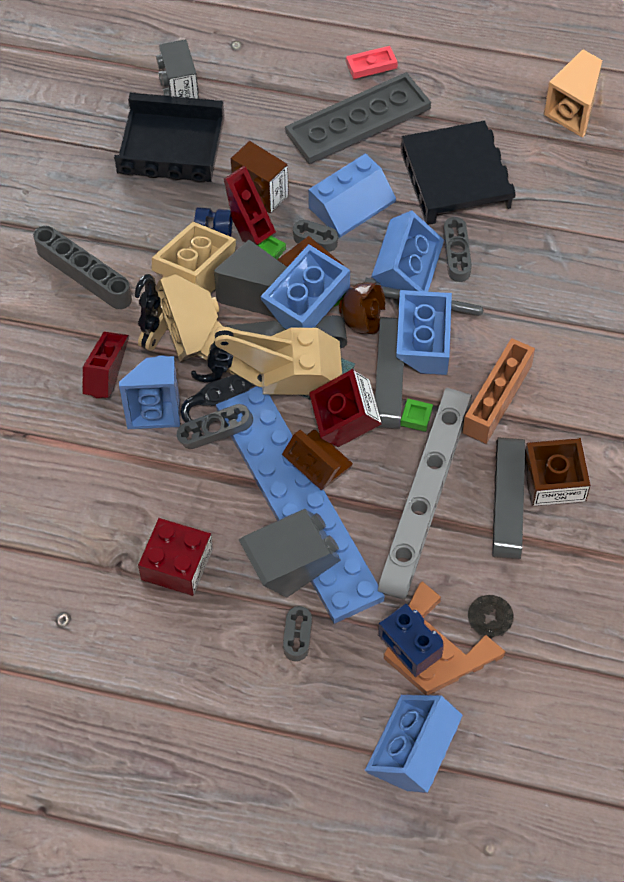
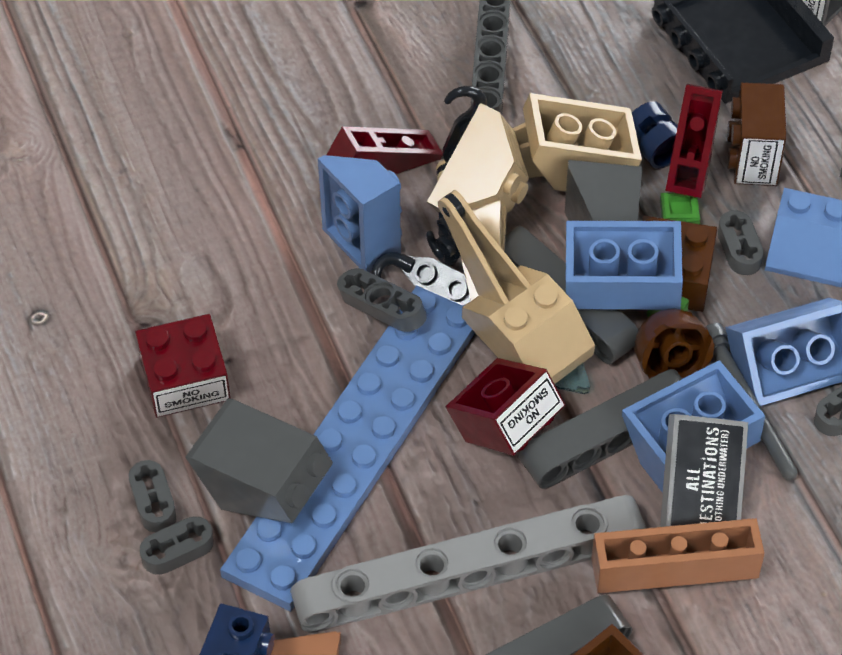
camera: 55 degrees right, 5 degrees down
(252, 627) = (144, 498): none -> dark grey beam
(316, 458) = (416, 421): reddish brown bracket -> none
(416, 415) = (571, 489): bright green plate -> none
(464, 345) = (703, 470): none -> black tile

